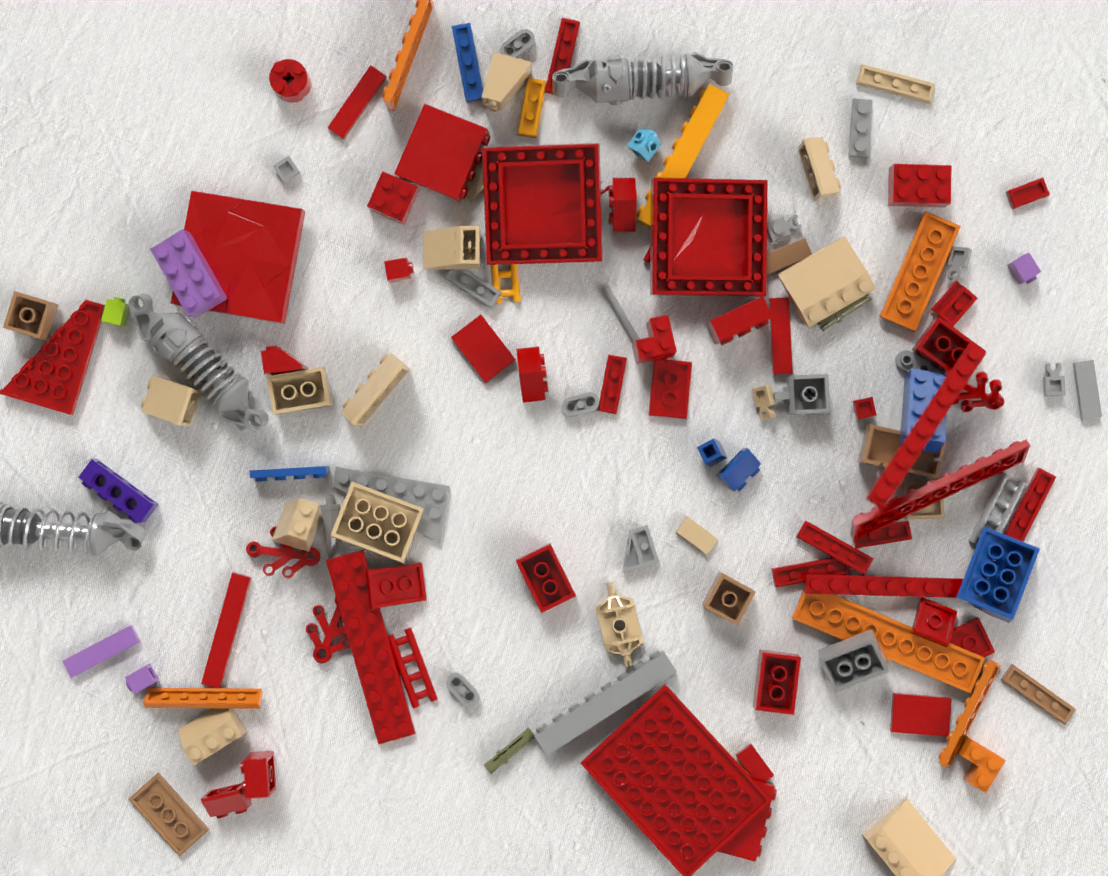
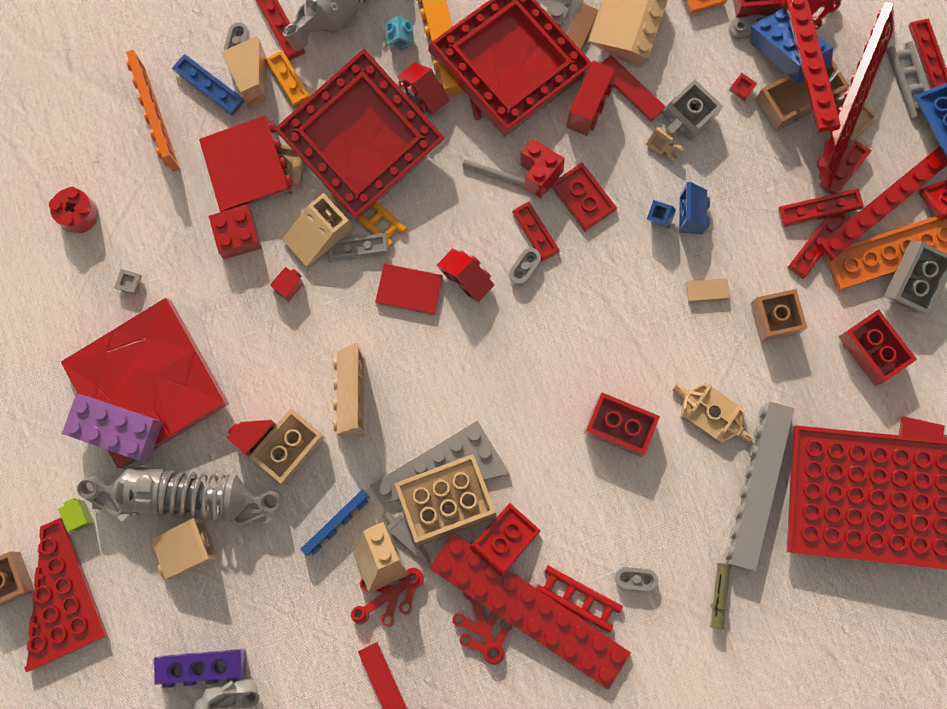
camera: 40 degrees left, 10 degrees down
(357, 102) = (143, 185): red tile -> none
(639, 549) = (674, 339): light grey wing -> none
(839, 315) = (660, 37): olive pin -> none

